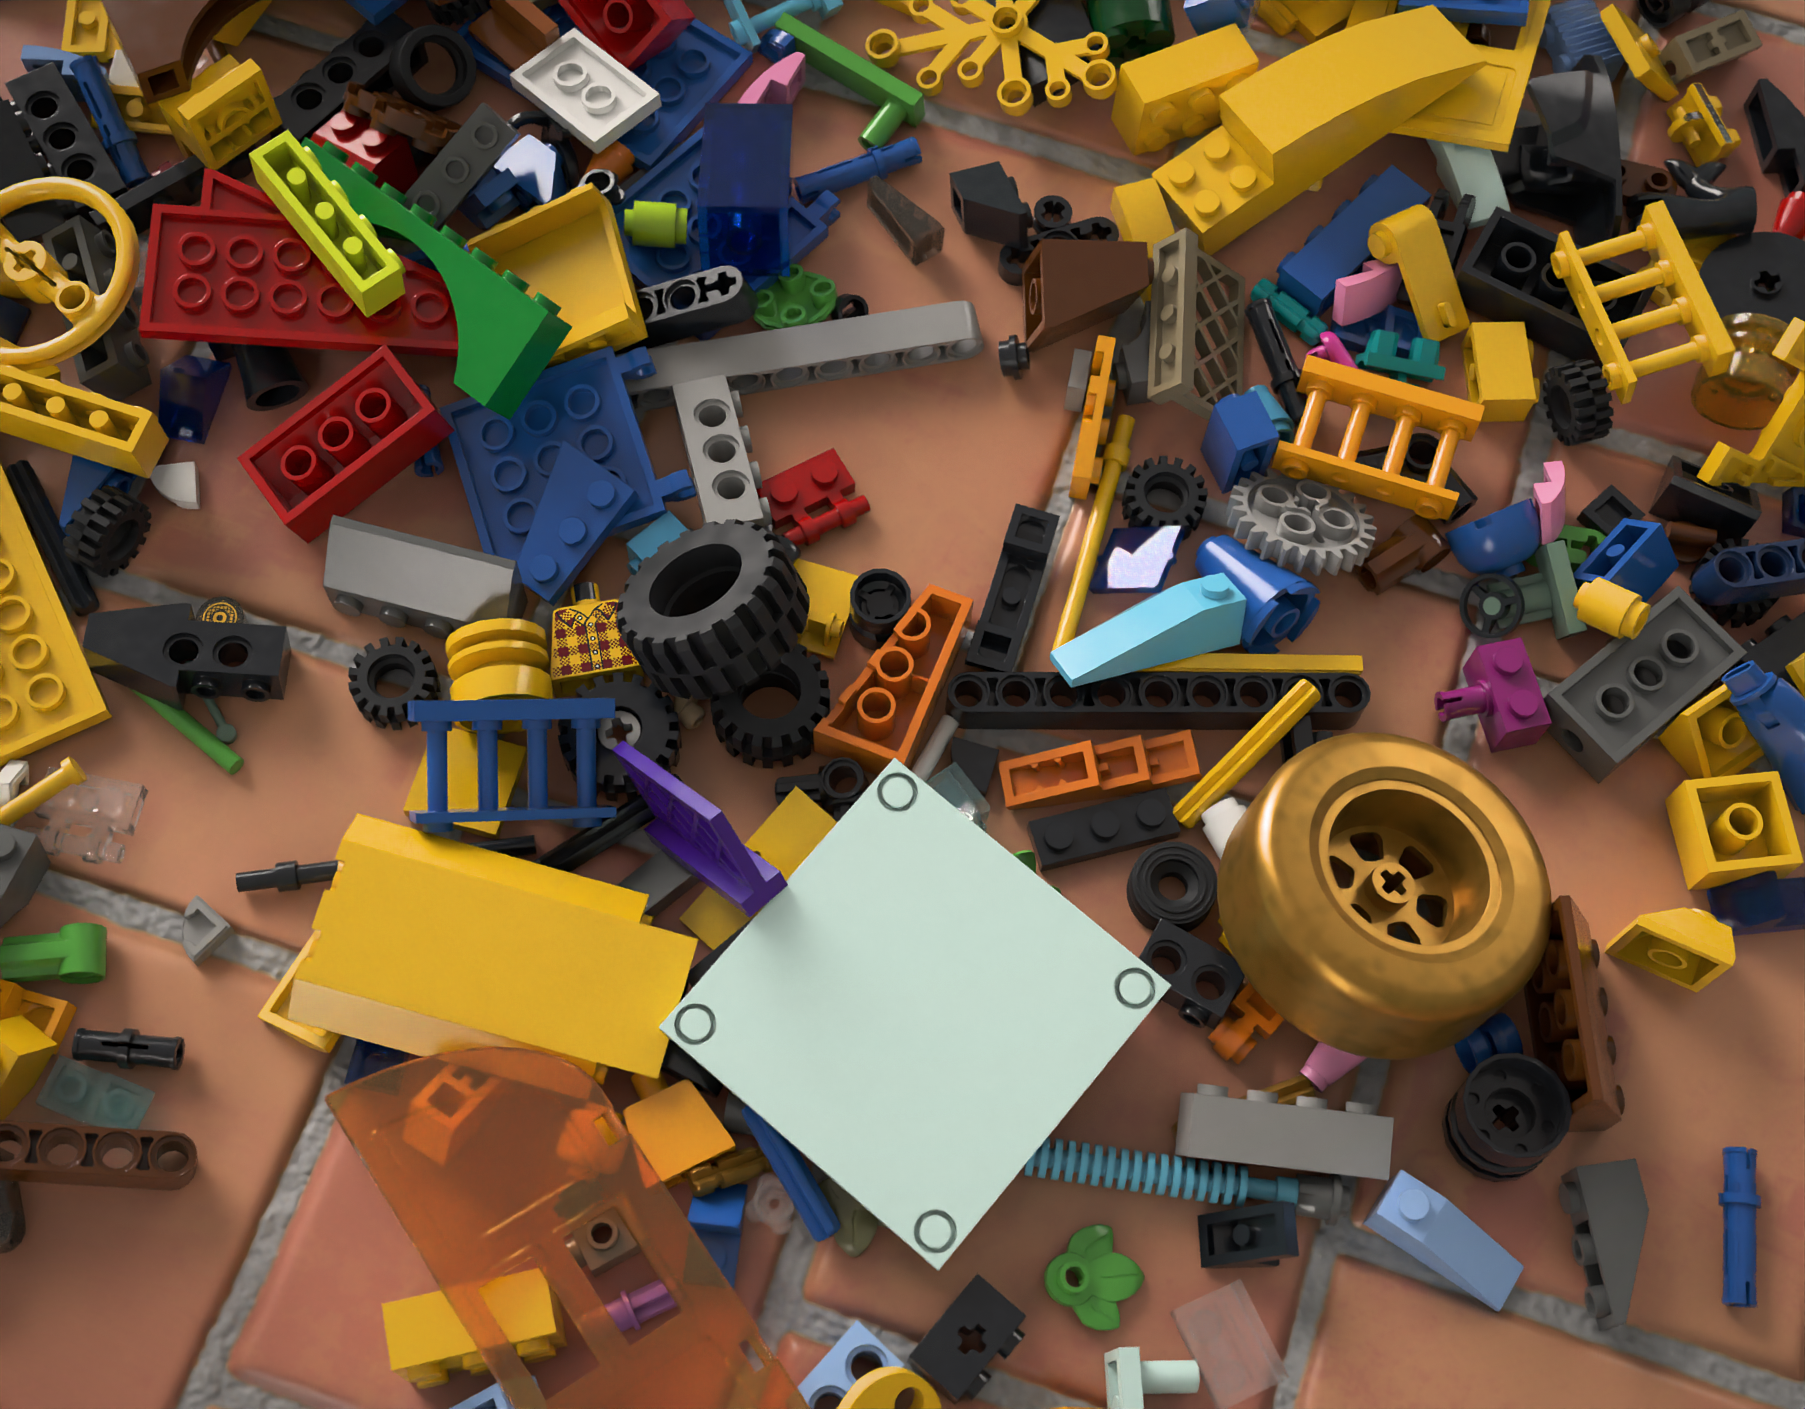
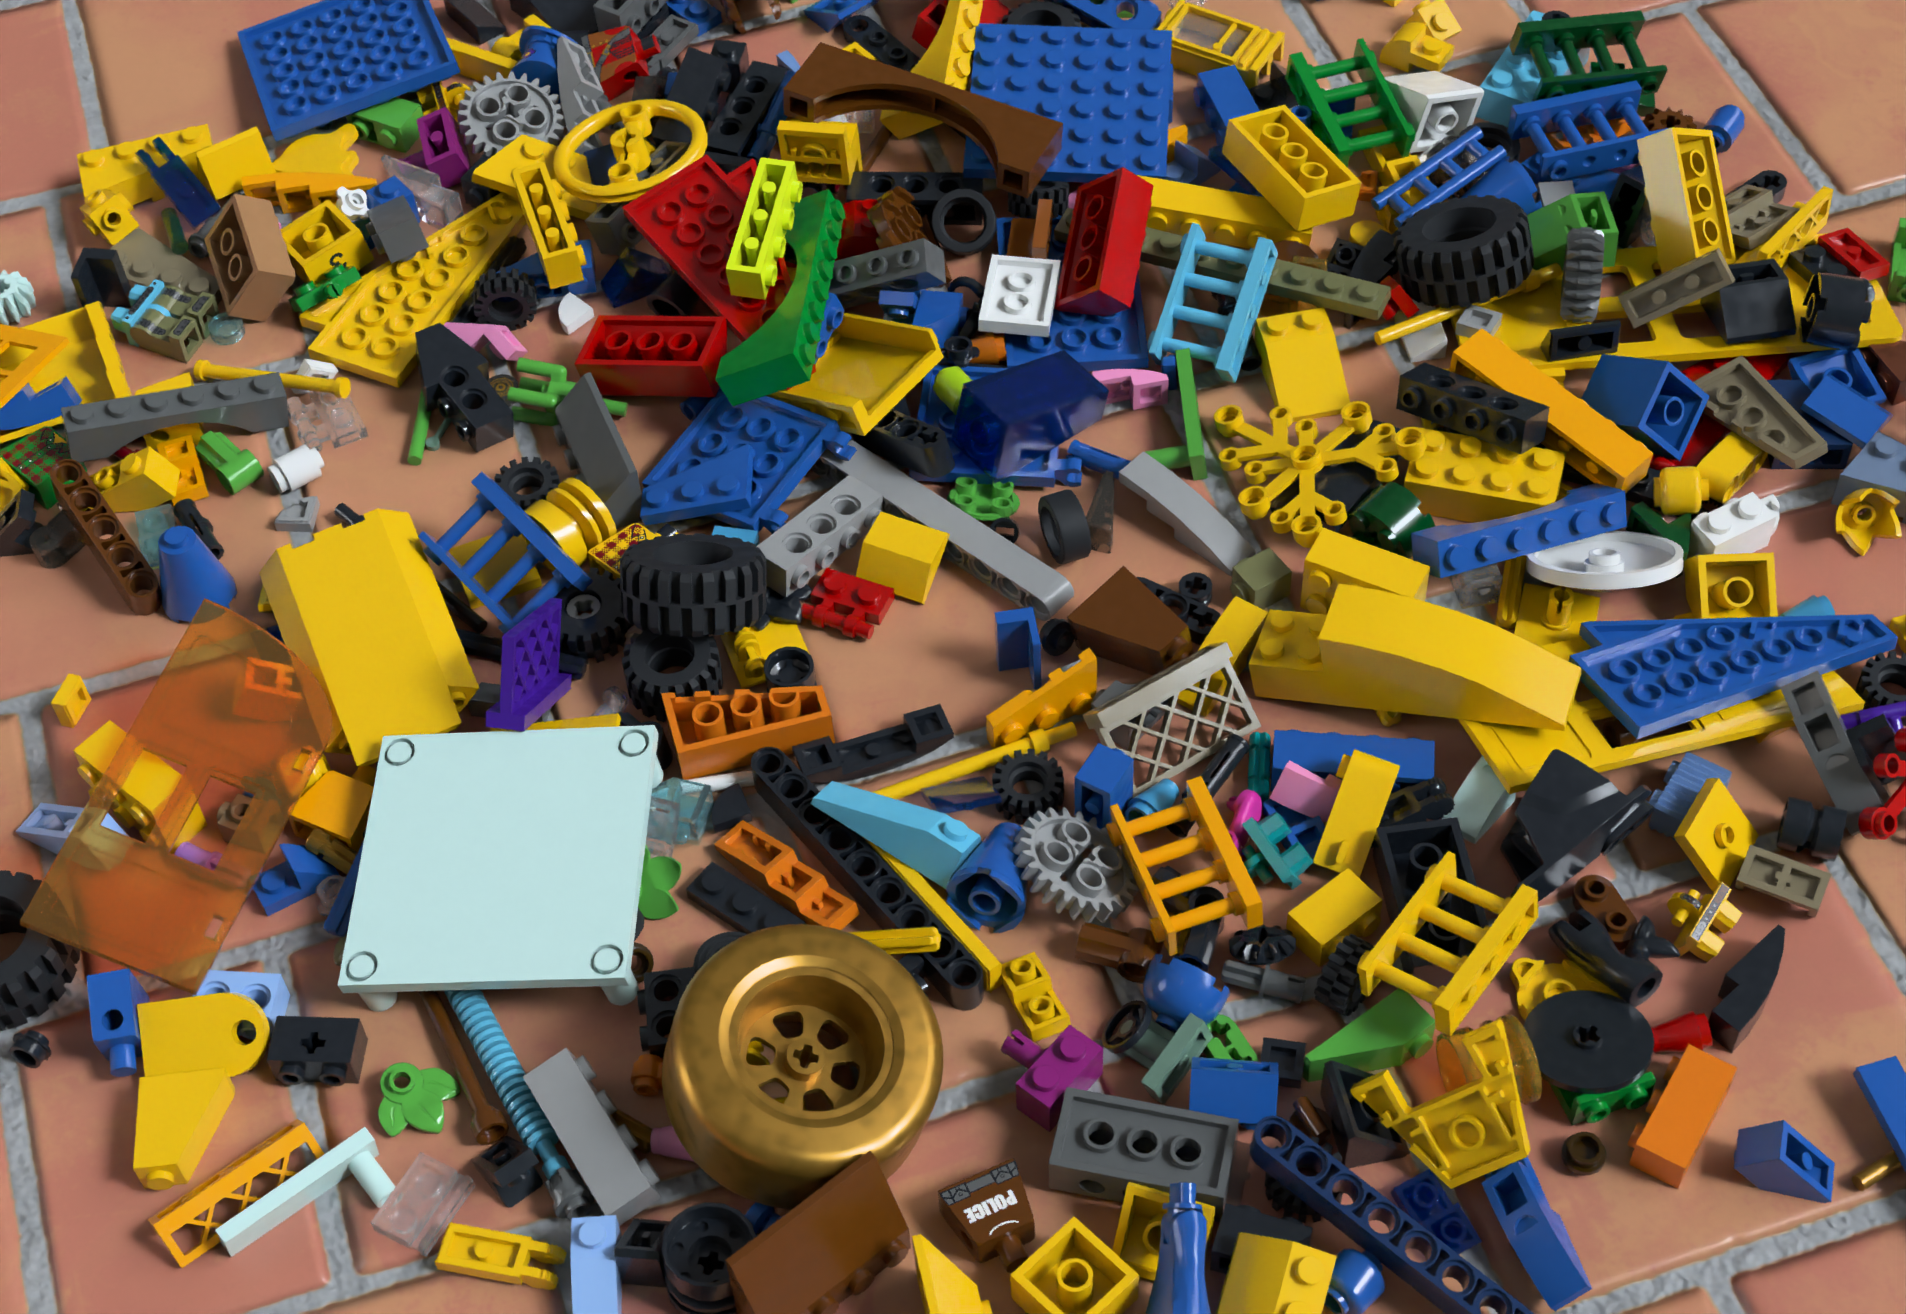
camera: 60 degrees right, 15 degrees down
(129, 586) = (502, 341): none -> bright pink slope
(138, 891) = (296, 468): none -> white brick
(214, 1099) = (190, 574): none -> blue cone
(262, 1332) = (71, 700): none -> yellow tile
(291, 569) = (546, 393): none -> bright green plant
(762, 791) = (614, 701): none -> clear arm
(807, 412) = (902, 556): none -> yellow slope
(909, 241) = (1064, 526): none -> black tyre
(947, 151) = (1191, 516): none -> light grey slope
(990, 205) = (1161, 545): black slope -> none
(1022, 383) = (1018, 642): none -> blue panel
(1091, 160) = (1261, 579): none -> olive brick
(1173, 1223) = (487, 1122): none -> reddish brown piece
(1336, 1313) = (497, 1256): none -> yellow hinge
(1394, 658) = (1033, 997): none -> yellow slope
(1435, 1160) = (640, 1253): none -> black slope
(1489, 456) = (1262, 945): none -> black gear
(1517, 469) = (1264, 980): none -> dark grey axle
(1550, 501) = (1238, 1007): bright pink slope -> none
(1605, 846) = (991, 1214): none -> reddish brown torso
(1611, 608) = (1169, 1081): yellow brick -> none
(1643, 430) = (1377, 1039): none -> bright green slope

